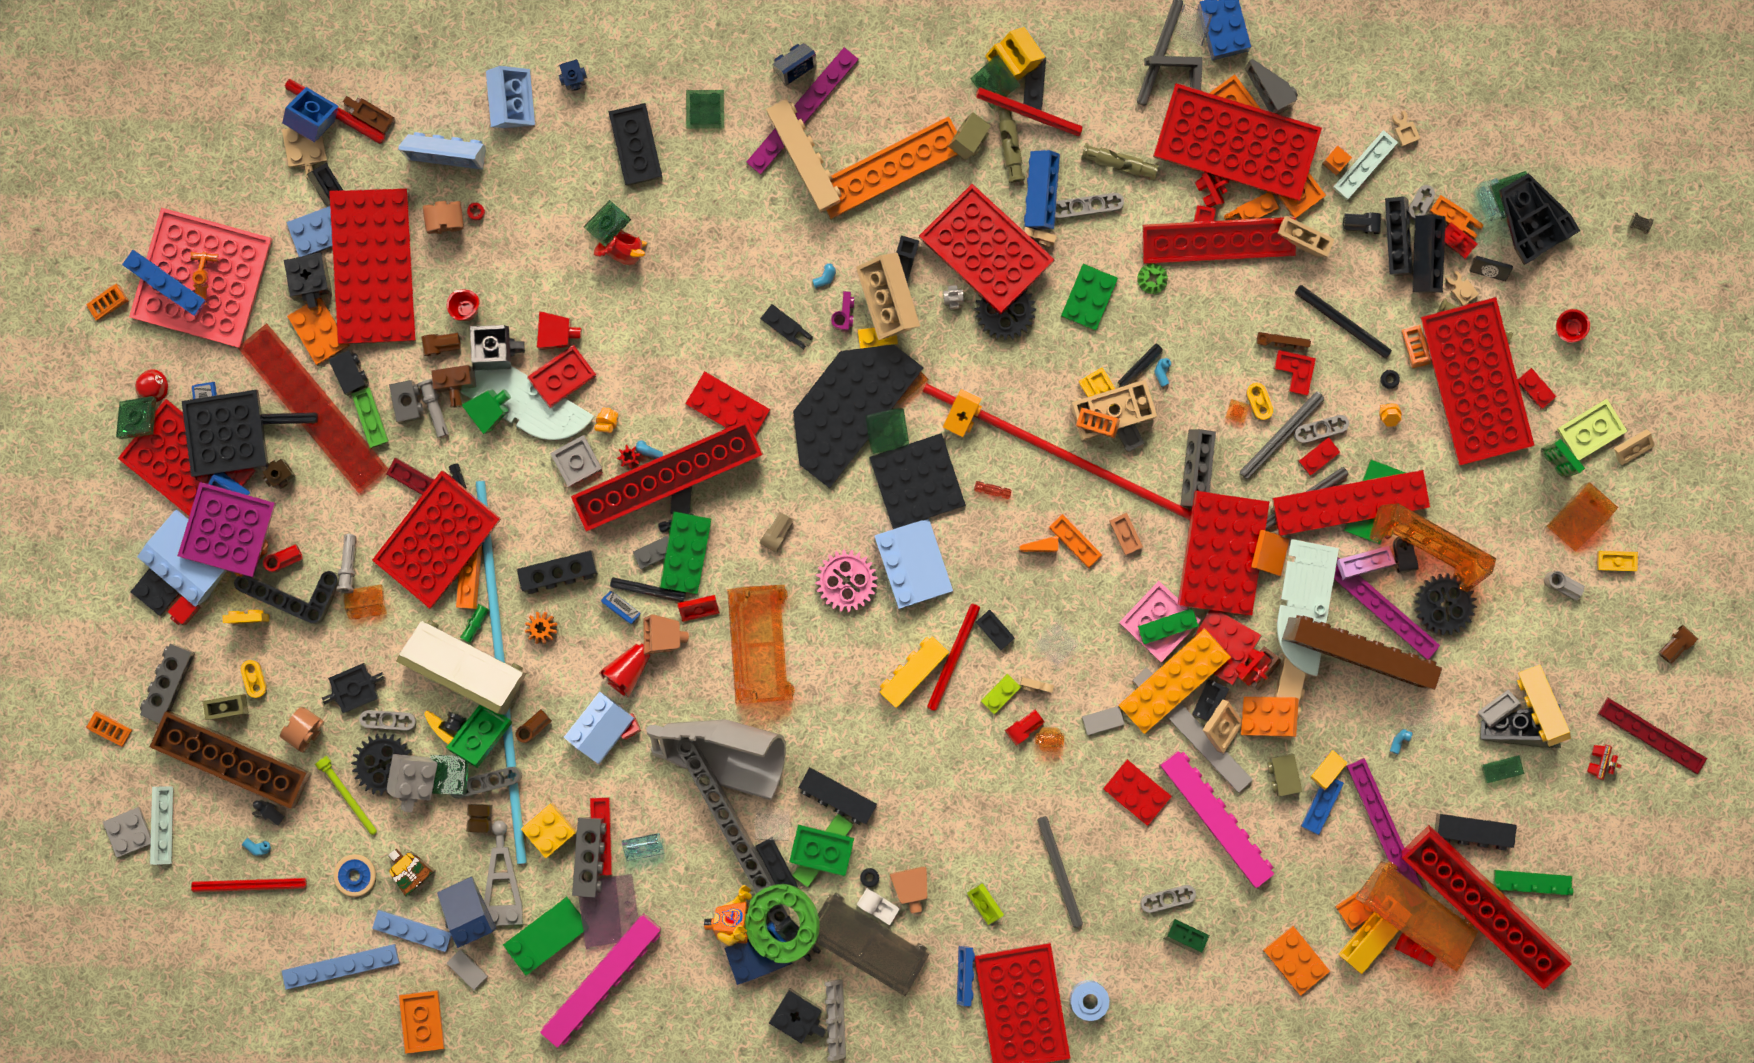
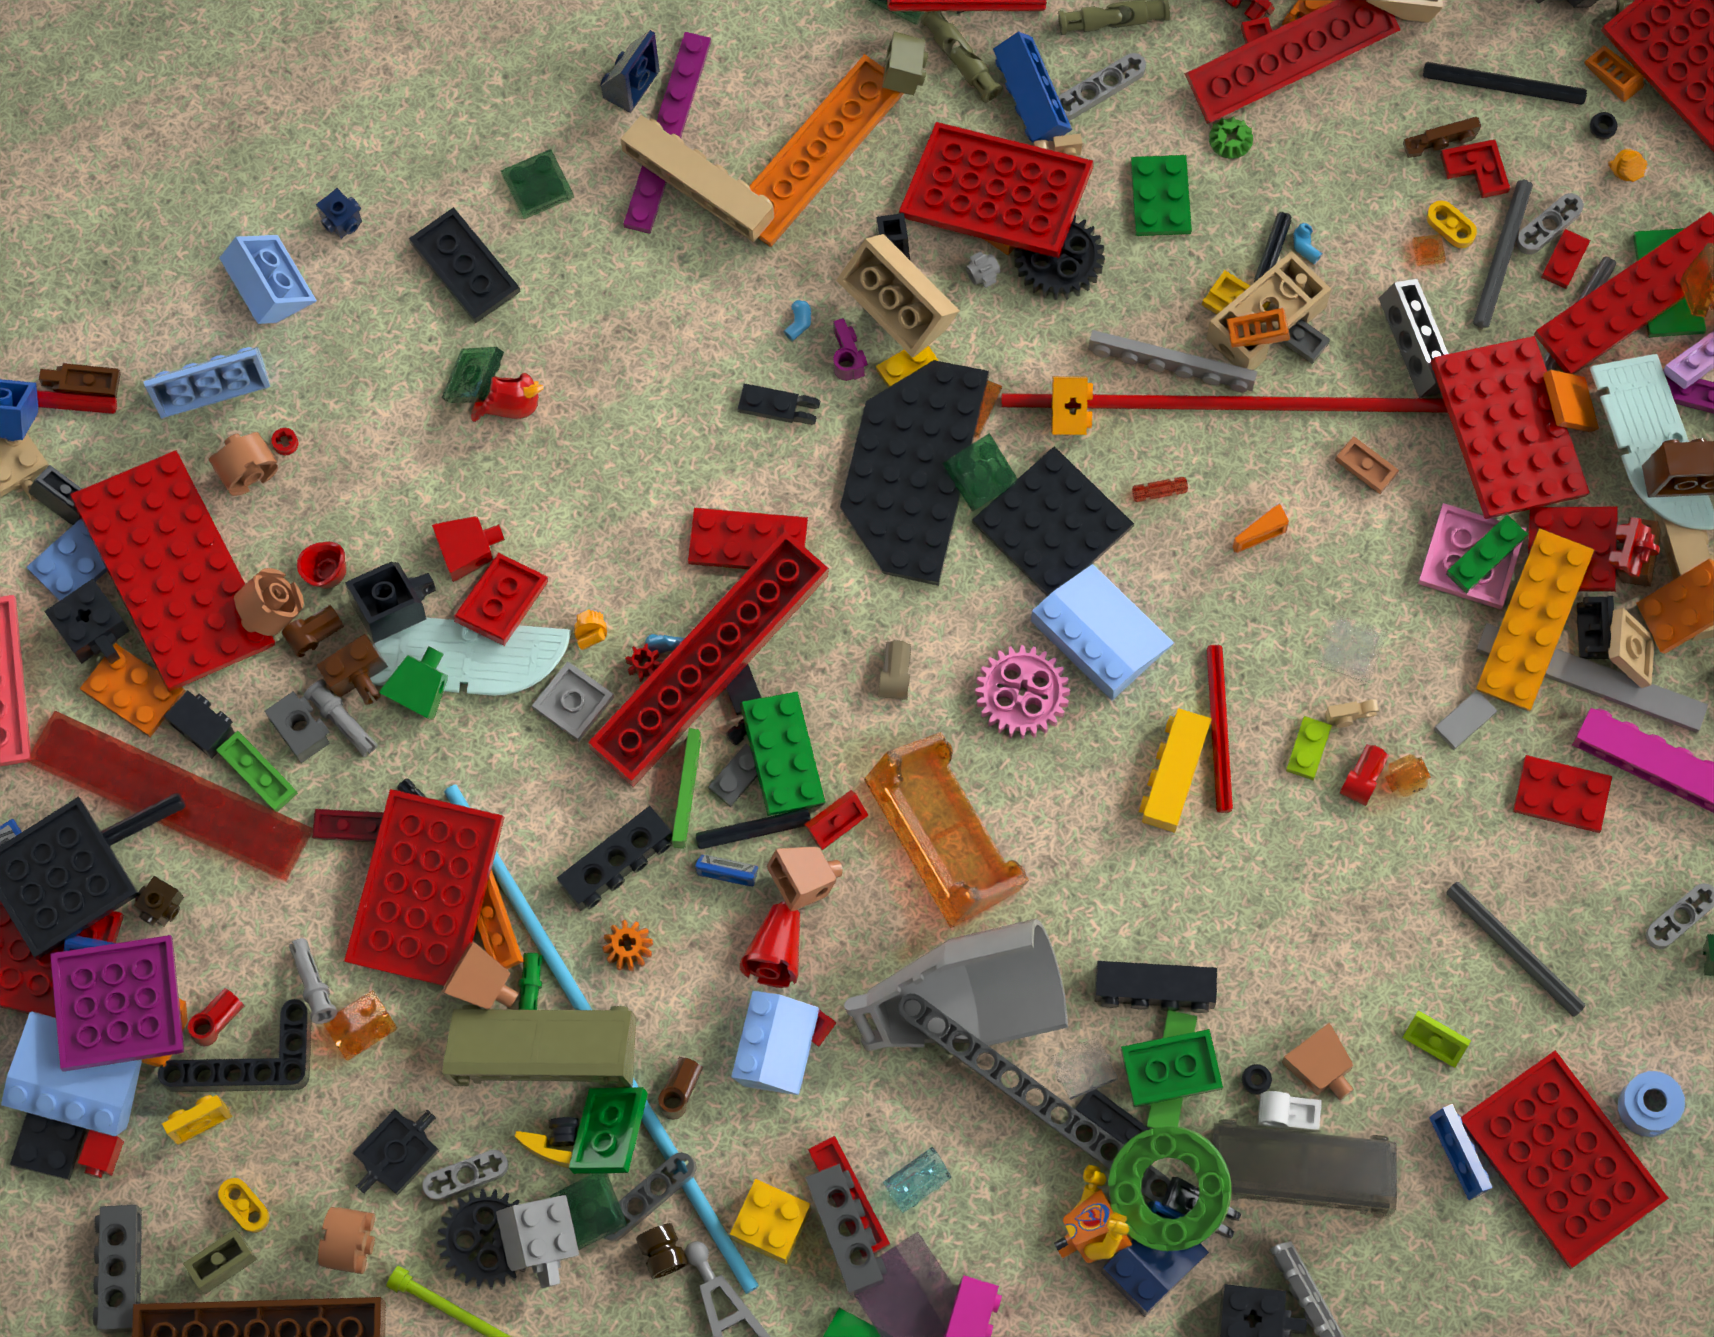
camera: 25 degrees left, 15 degrees down
(419, 316) = (268, 602): none -> nougat brick
(443, 611) = (479, 980): none -> nougat torso
(619, 547) = (686, 788): none -> bright green tile
(995, 630) = (1257, 666): black plate -> none
(1046, 418) = (1181, 363): none -> light grey plate
(1075, 541) = (1305, 505): orange tile -> none

